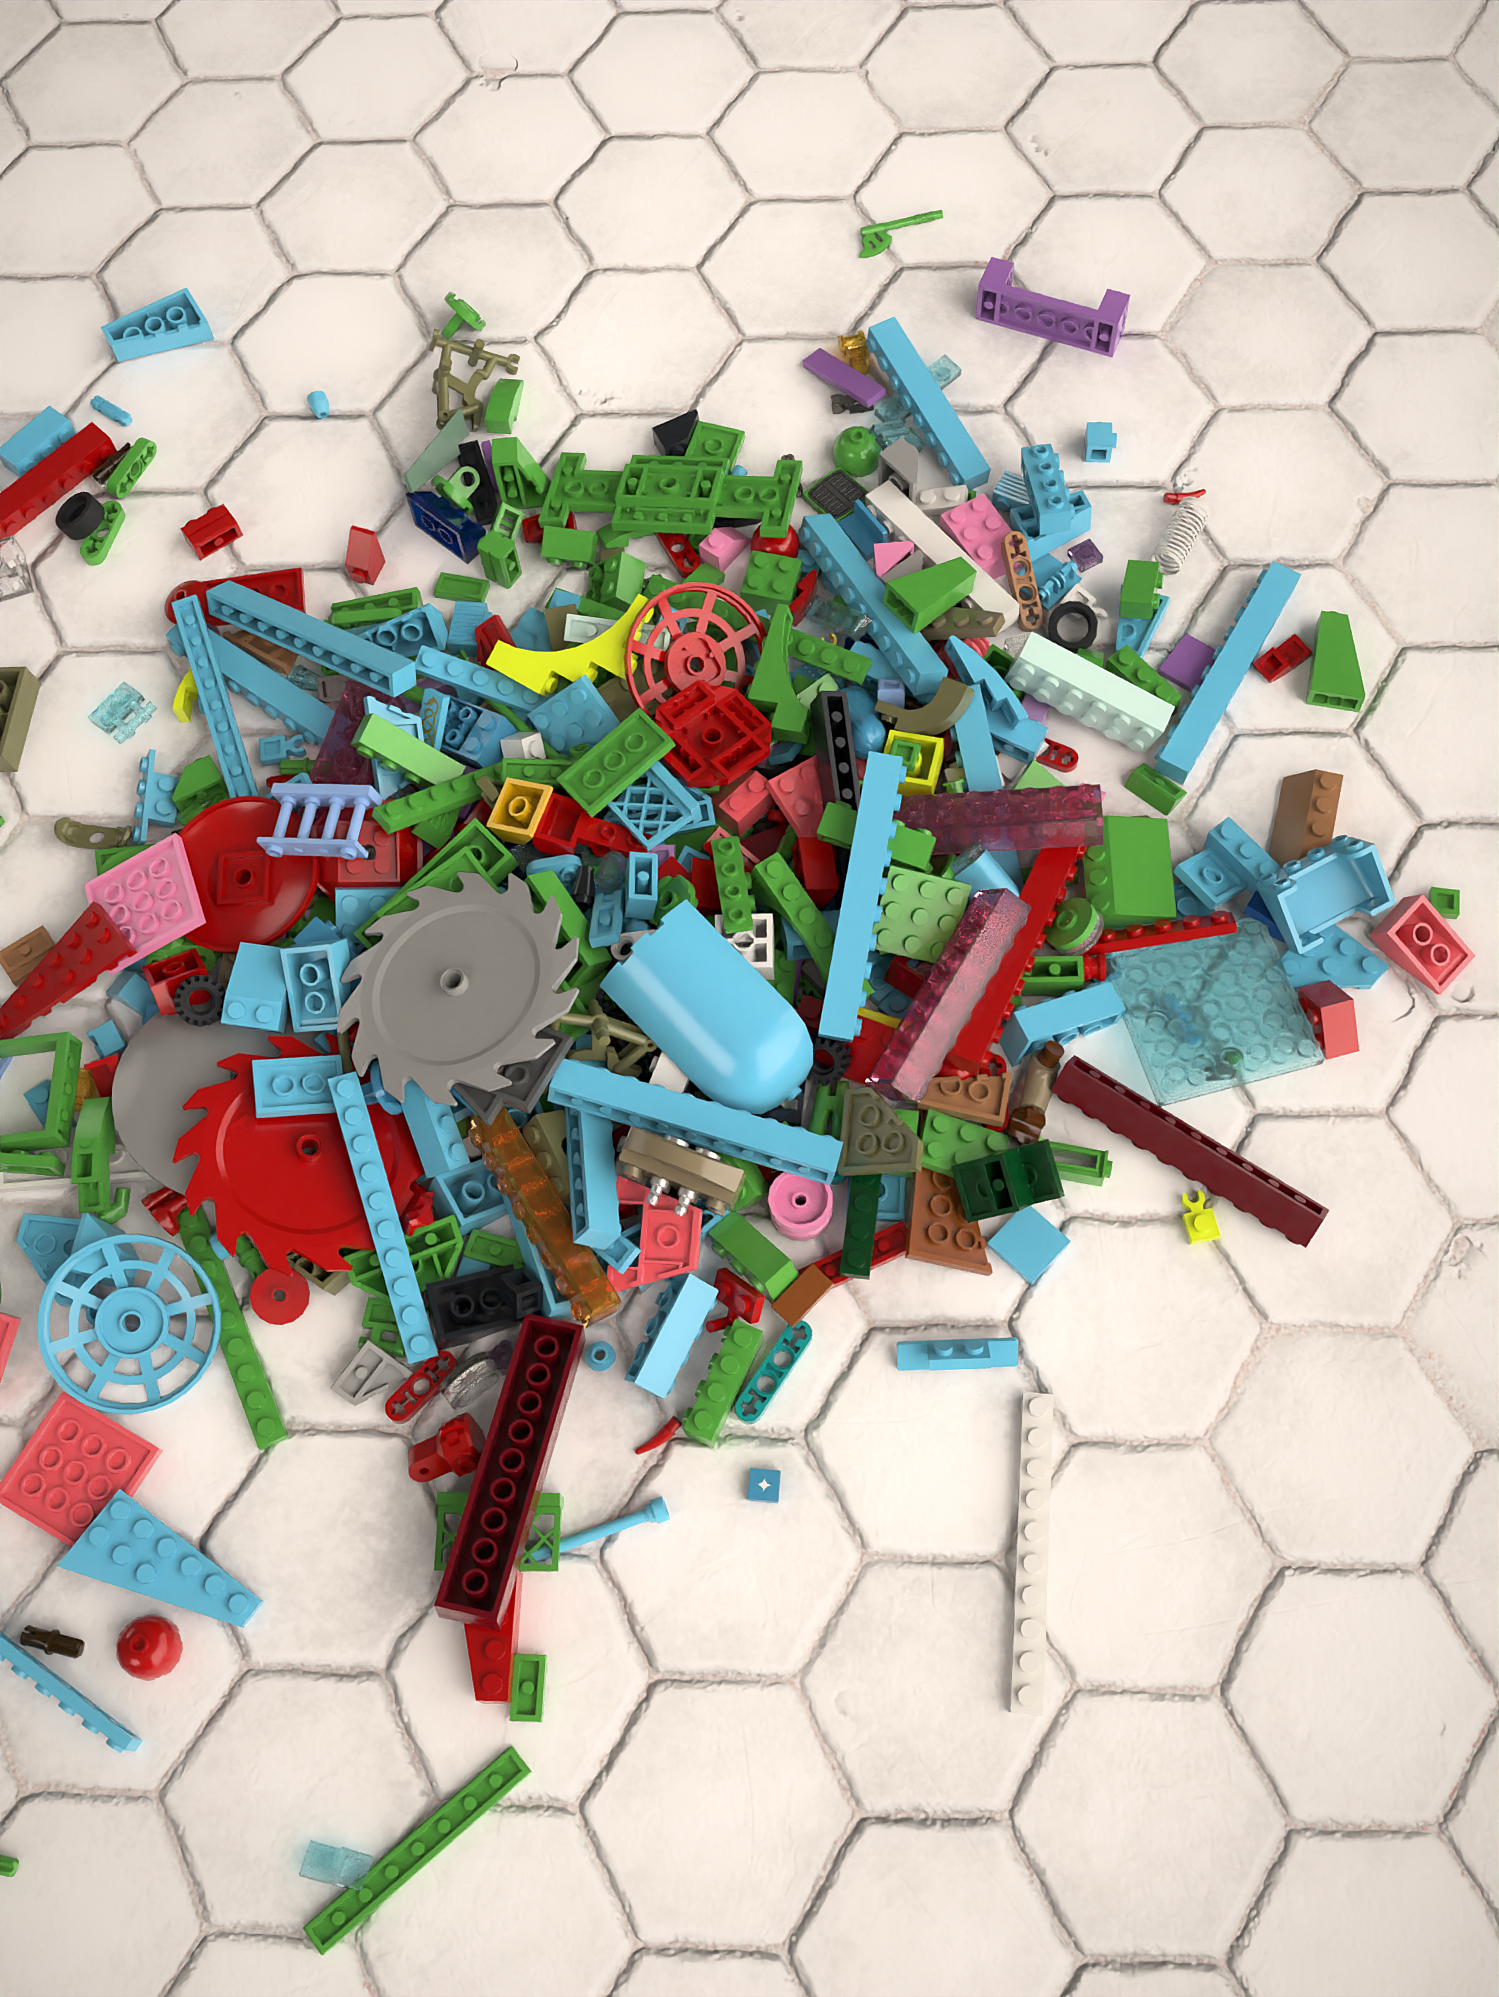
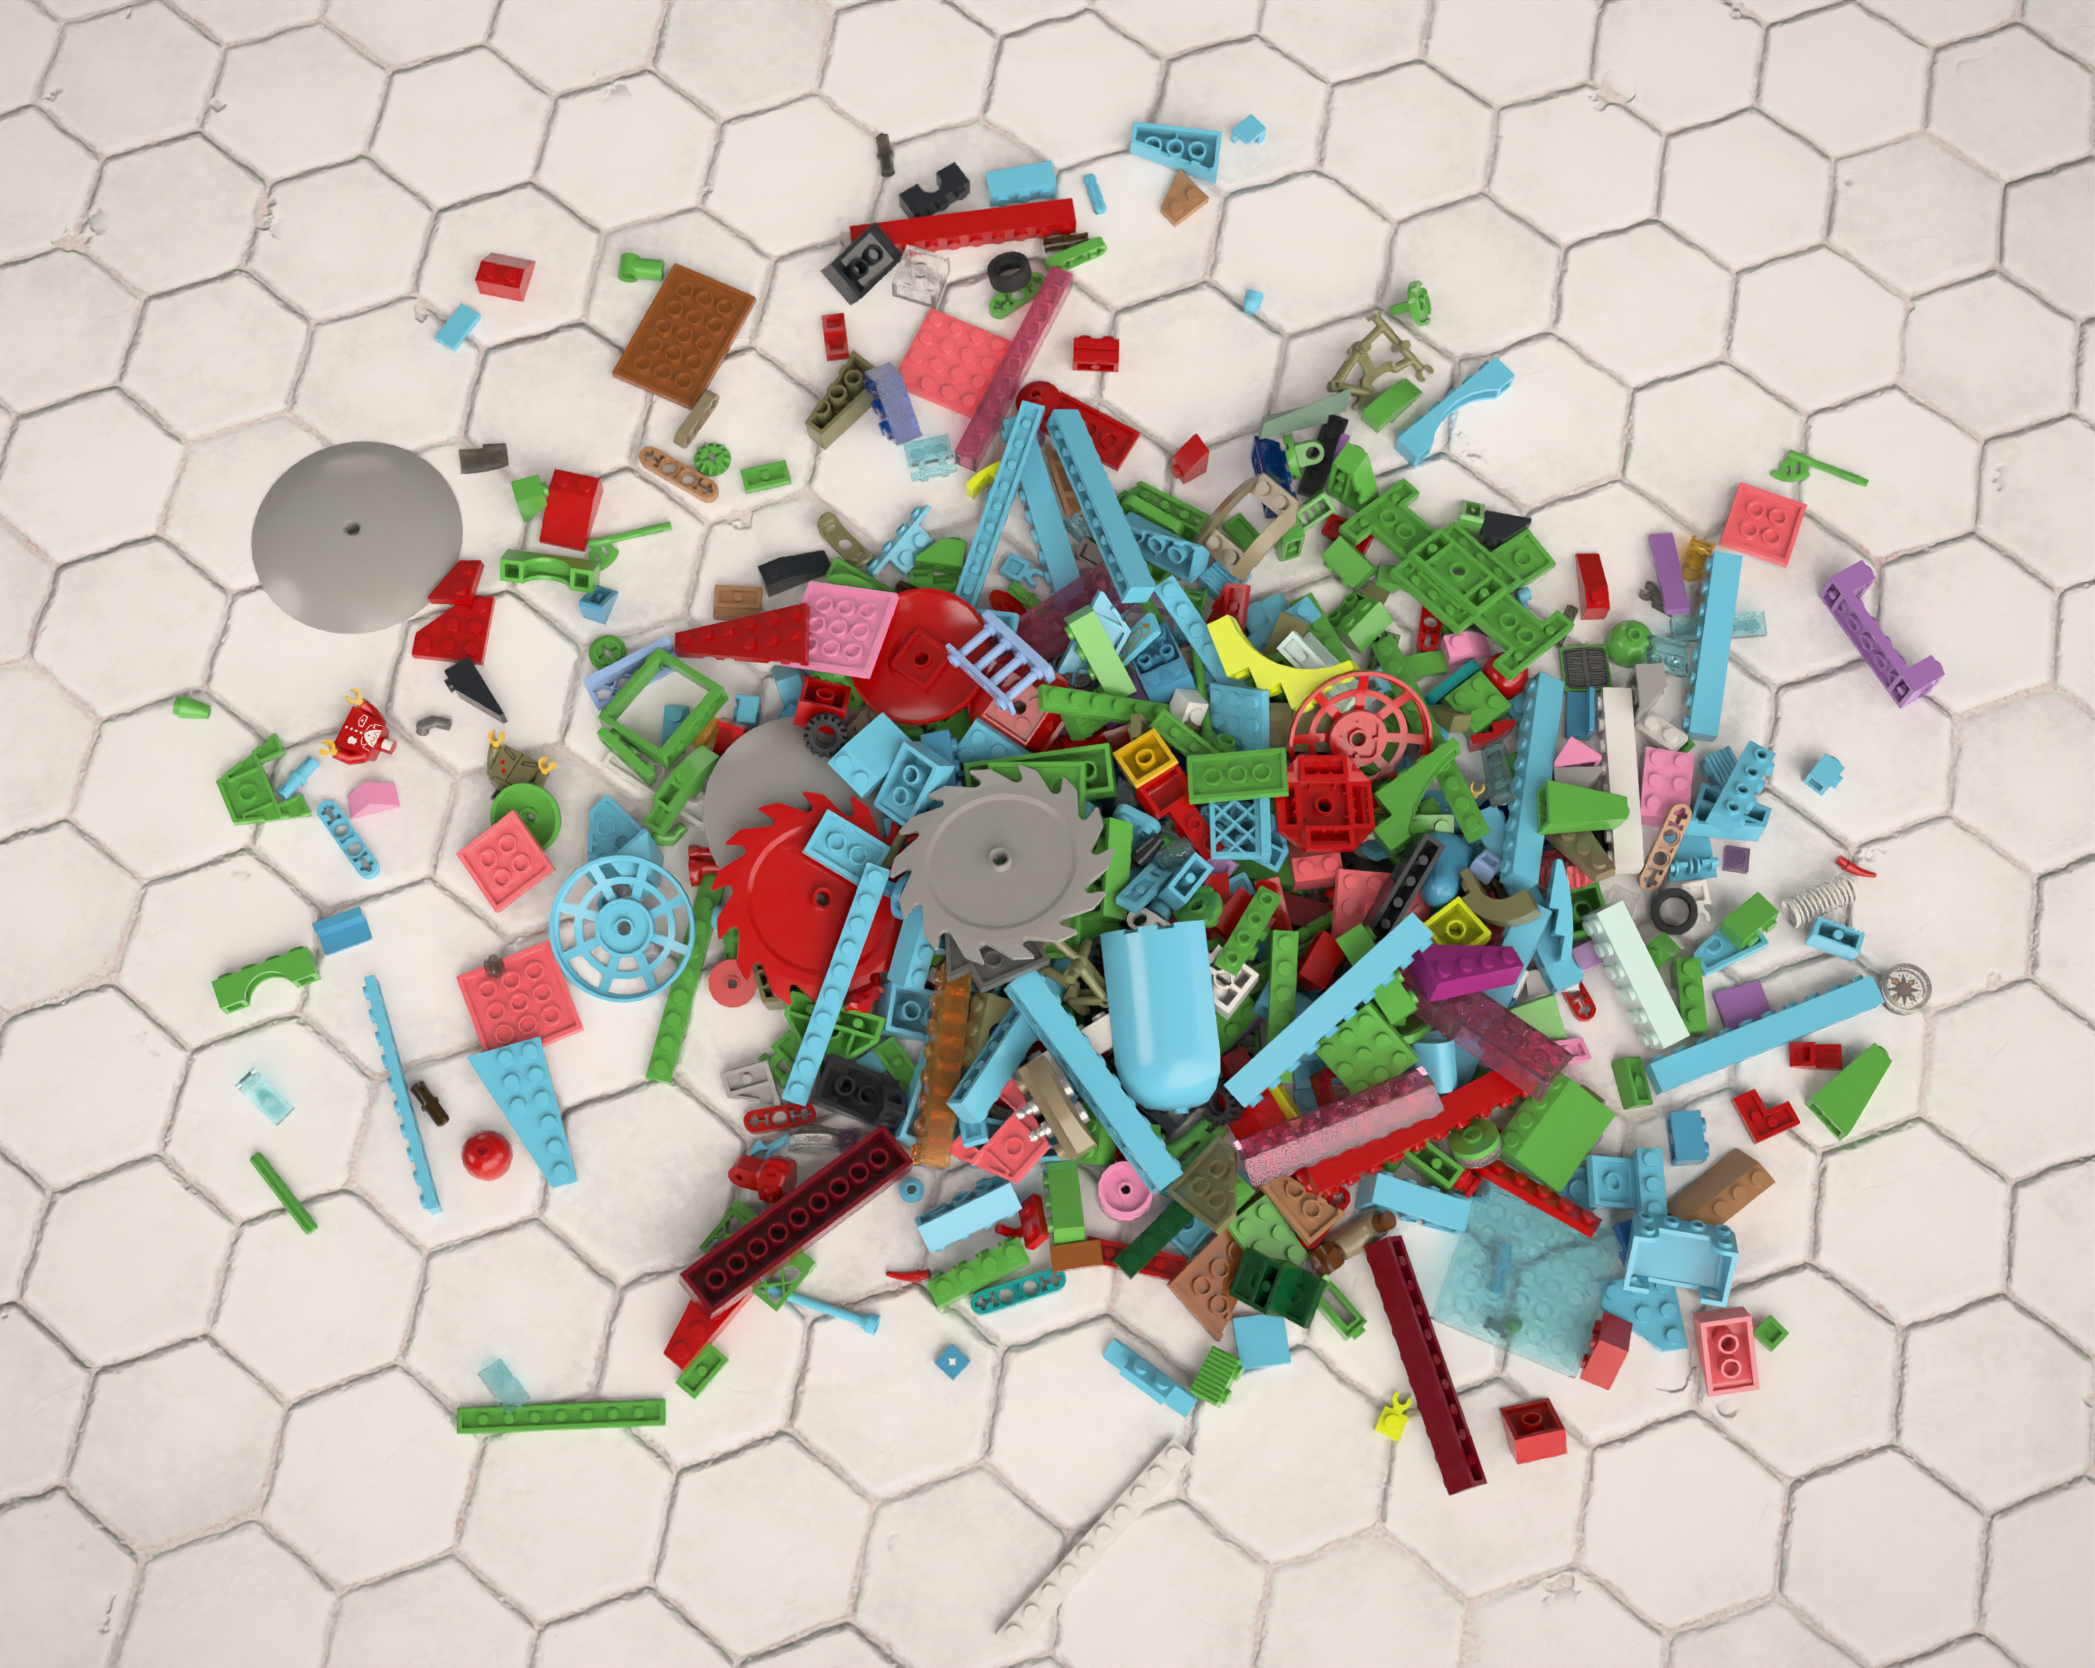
camera: 30 degrees right, 5 degrees up
(23, 1456) = (494, 966): none -> clear smoke plate
(50, 684) = (892, 404): none -> clear blue brick
(61, 894) = (792, 571): none -> black slope
(84, 625) = (952, 362): none -> coral plate
(144, 592) = (1013, 369): none -> clear pink brick
(194, 367) = (1182, 199): none -> medium nougat wing
(211, 276) = (1249, 130): none -> medium azure panel
(434, 1420) = (770, 1148): none -> medium azure bar
(468, 528) = (1228, 552): none -> dark tan wedge
(572, 338) = (1487, 384): none -> medium azure arch
(644, 443) = (1471, 517): none -> bright green slope
(738, 571) = (1451, 683): none -> teal beam
(765, 600) = (1450, 719): none -> olive slope
(791, 431) = (1592, 587): none -> red slope
(887, 292) = (1763, 524): none -> coral plate
(908, 750) = (1451, 924): bright green tile -> none
(947, 781) = (1464, 969): none -> magenta wedge
(967, 858) = (1433, 1036): clear light blue tile -> none
(1018, 1304) = (1217, 1377): none -> bright green brick
(1218, 555) = (1834, 938): none -> medium azure brick
(1238, 797) = (1687, 1138): none -> dark azure brick
(1287, 741) = (1763, 1123): none -> red plate
(1307, 554) = (1905, 989): none -> clear piece
(1327, 1135) = (1533, 1431): none -> red slope

